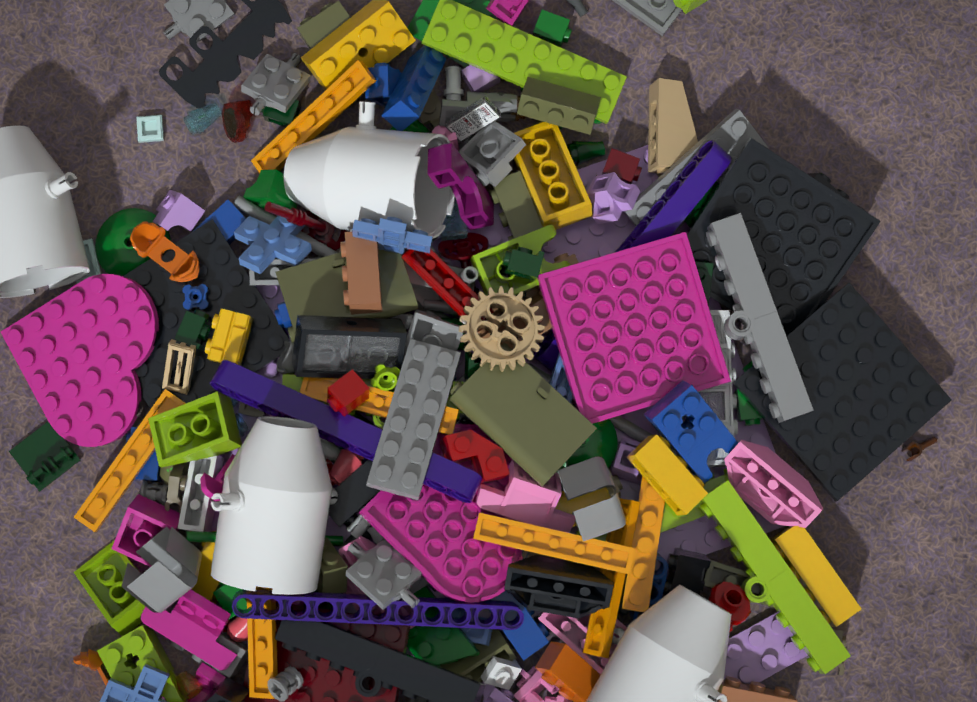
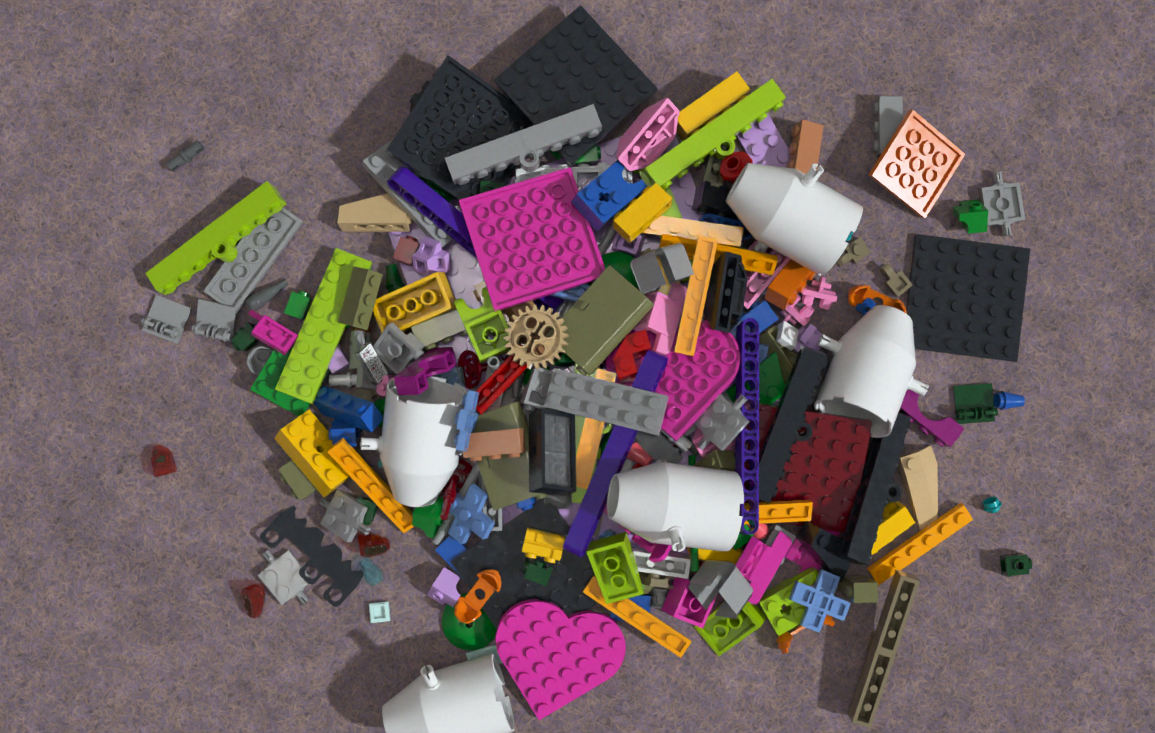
camera: 90 degrees left, 5 degrees up
(44, 456) = (632, 682): dark green hinge -> none
(182, 348) = (553, 579): tan tile -> none
(188, 685) = (801, 567): clear yellow hose -> none
(201, 302) = (507, 567): blue plate -> none
(286, 683) = (801, 494): light grey bush -> none
(347, 393) = (588, 452): red brick -> none
(388, 383) = (578, 424): lime plate -> none
(523, 263) = (485, 321): dark green brick -> none
(916, 449) = (614, 32): reddish brown hand -> none

